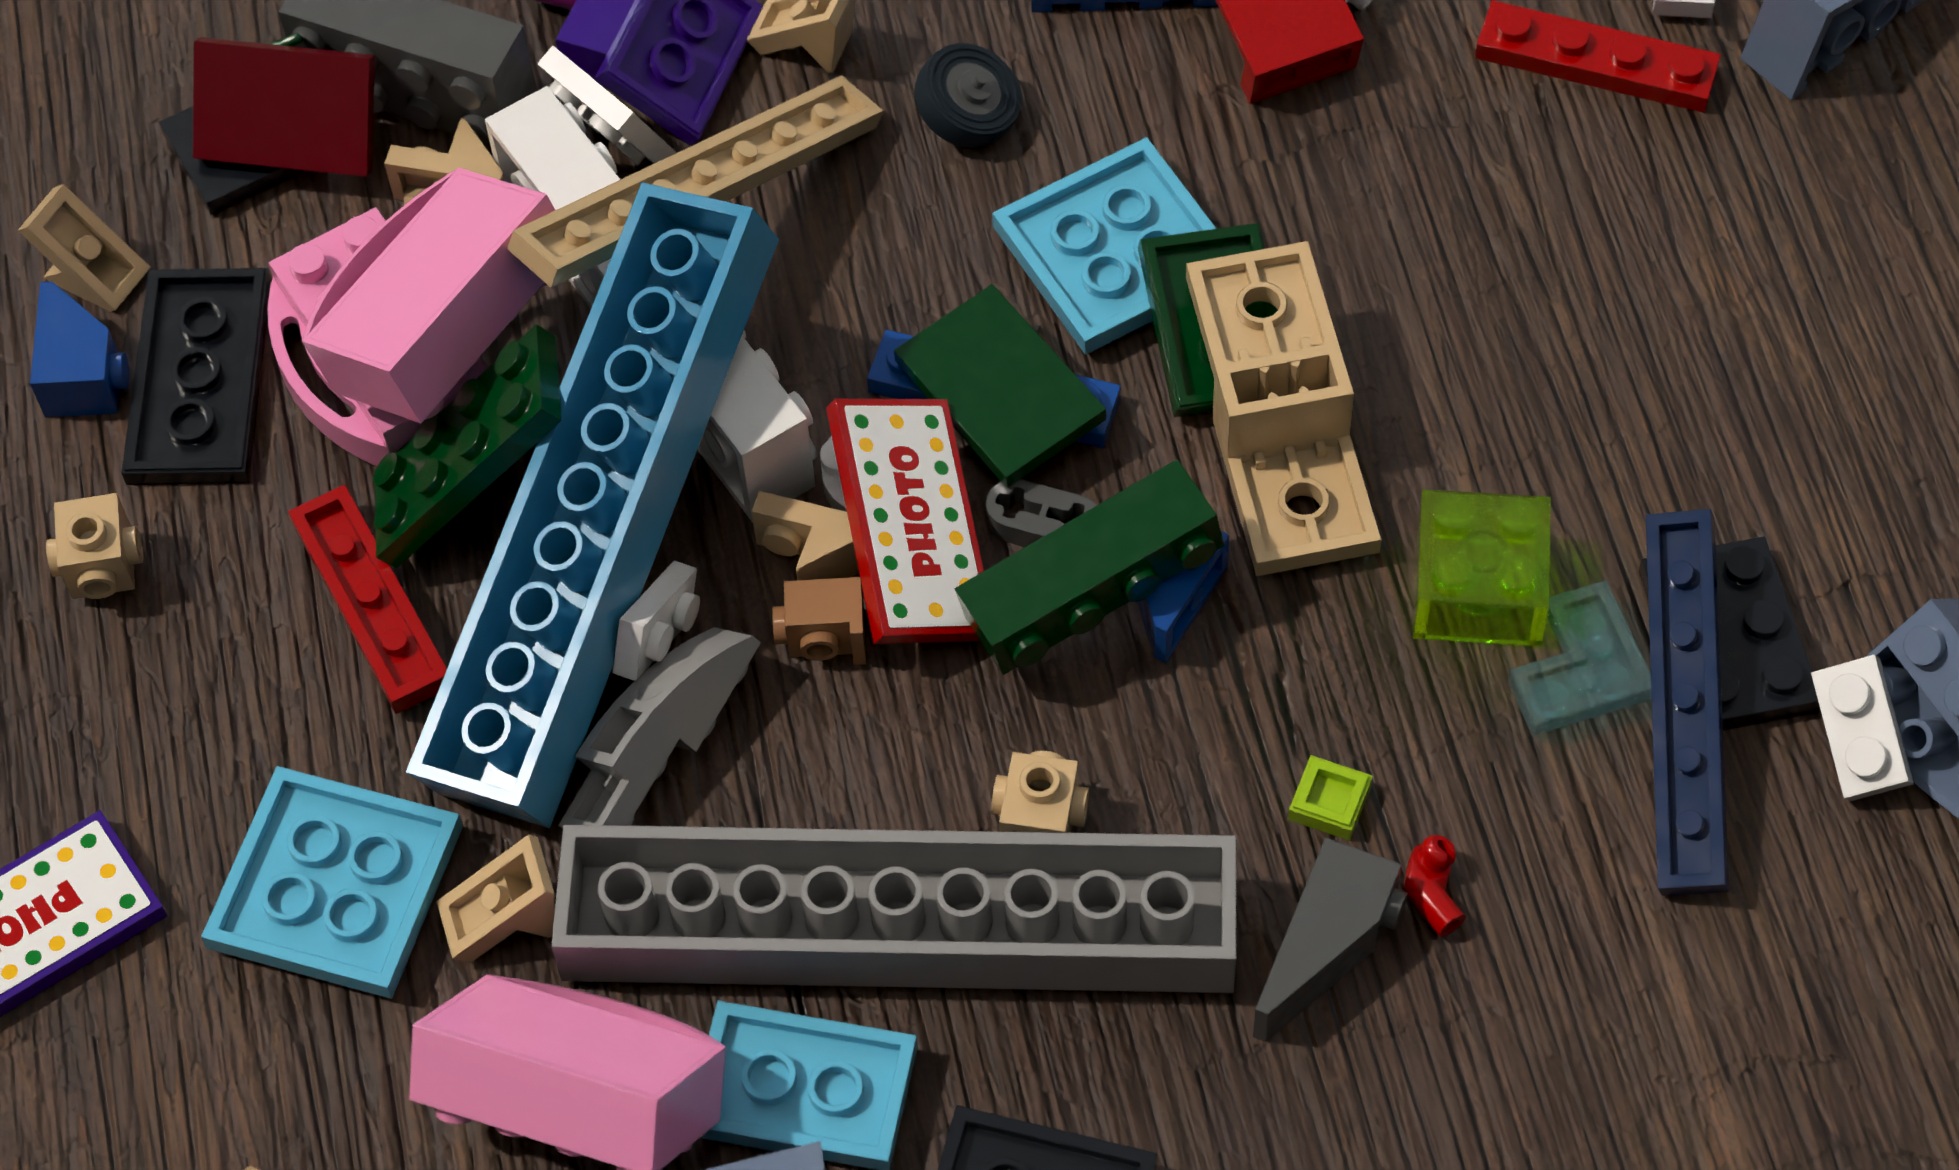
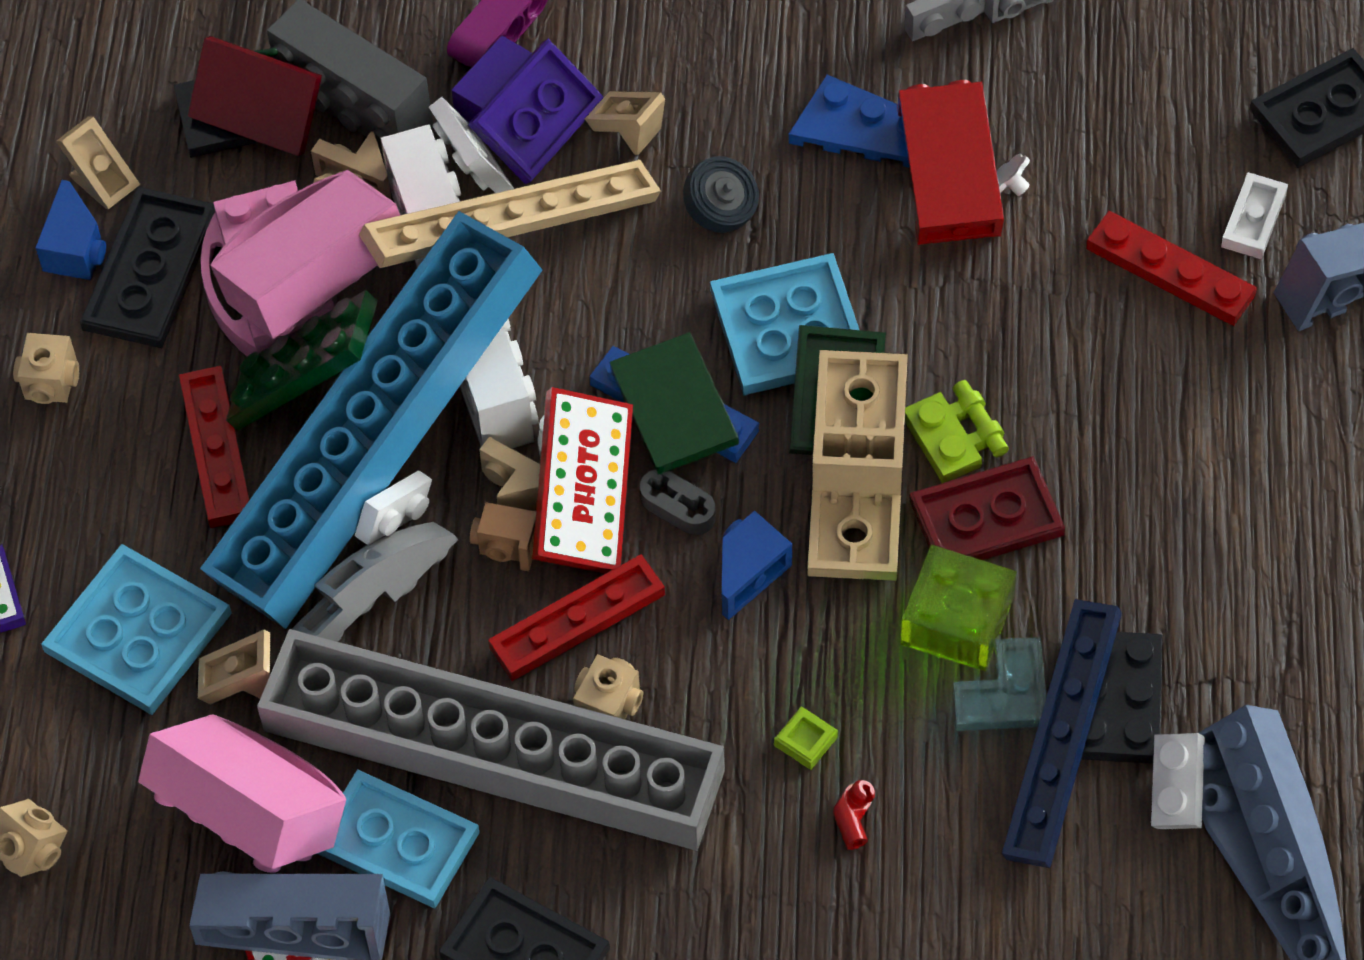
camera: 15 degrees right, 0 degrees up
(942, 728) = (576, 617): none -> red plate
(1090, 567) = (688, 543): dark green brick -> none
(1331, 932) = (772, 826): dark grey slope -> none
(1379, 349) = (943, 438): none -> lime plate
(1471, 429) = (989, 511): none -> dark red tile

